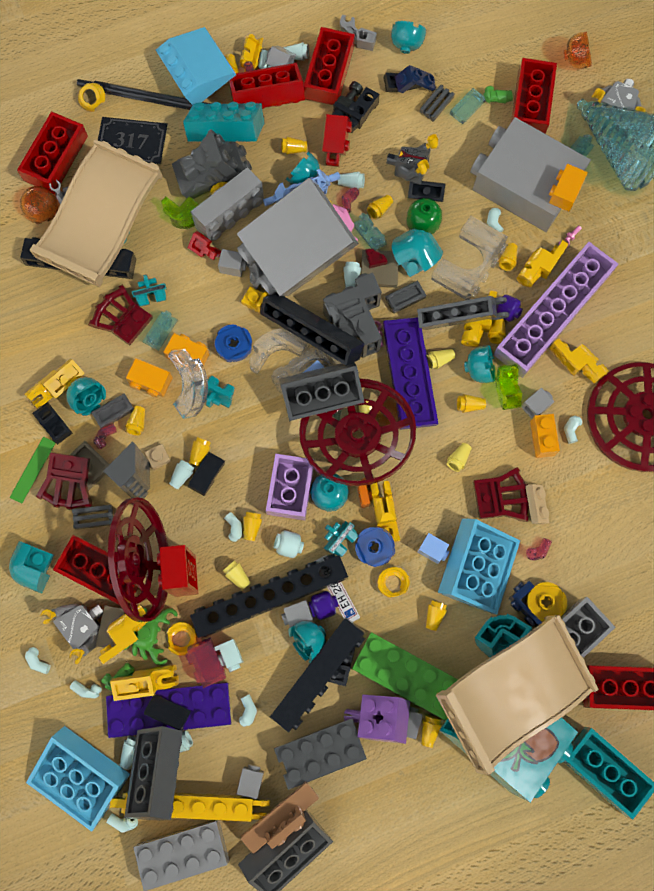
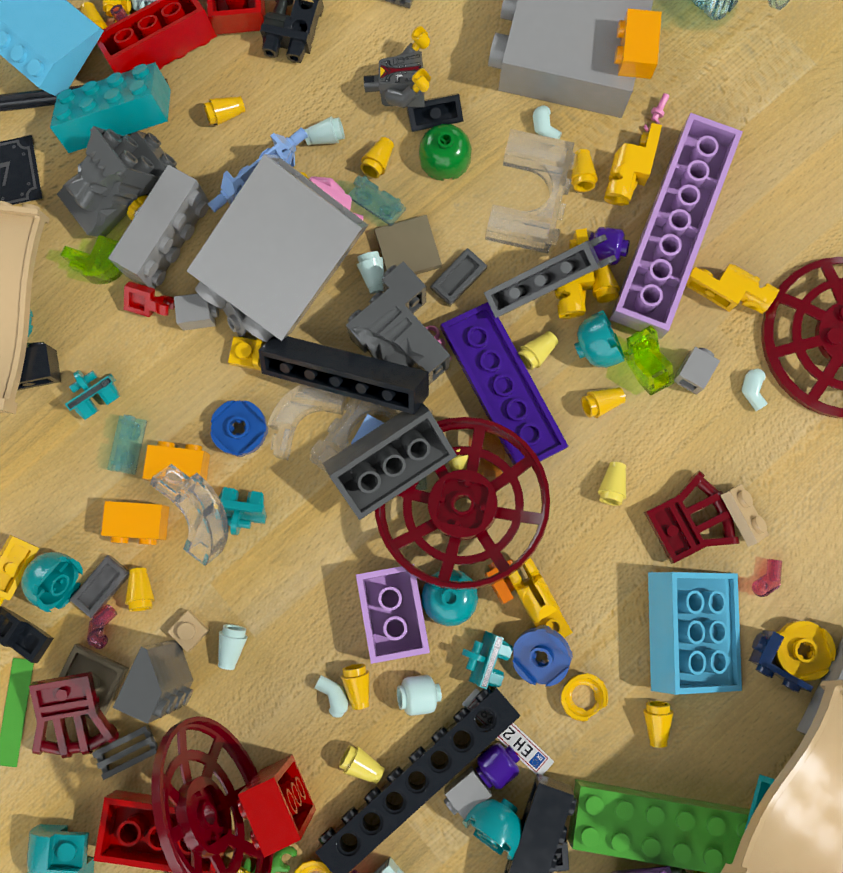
camera: 15 degrees left, 5 degrees up
(129, 324) = (79, 451): dark red plate -> none
(199, 450) = (244, 603): yellow cone -> none
(206, 473) = (266, 632): black slope -> none
(305, 169) = (252, 140): teal cylinder -> none
(336, 138) = (281, 77): red brick -> none
(349, 197) = (329, 159): clear pink arm -> none
(375, 258) = (397, 236): dark red tile -> none
(416, 251) = (452, 206): teal brick -> none
(434, 549) = (624, 629): light blue brick -> none
(500, 633) = (767, 726): teal brick -> none
(544, 435) = (722, 413): light orange brick -> none

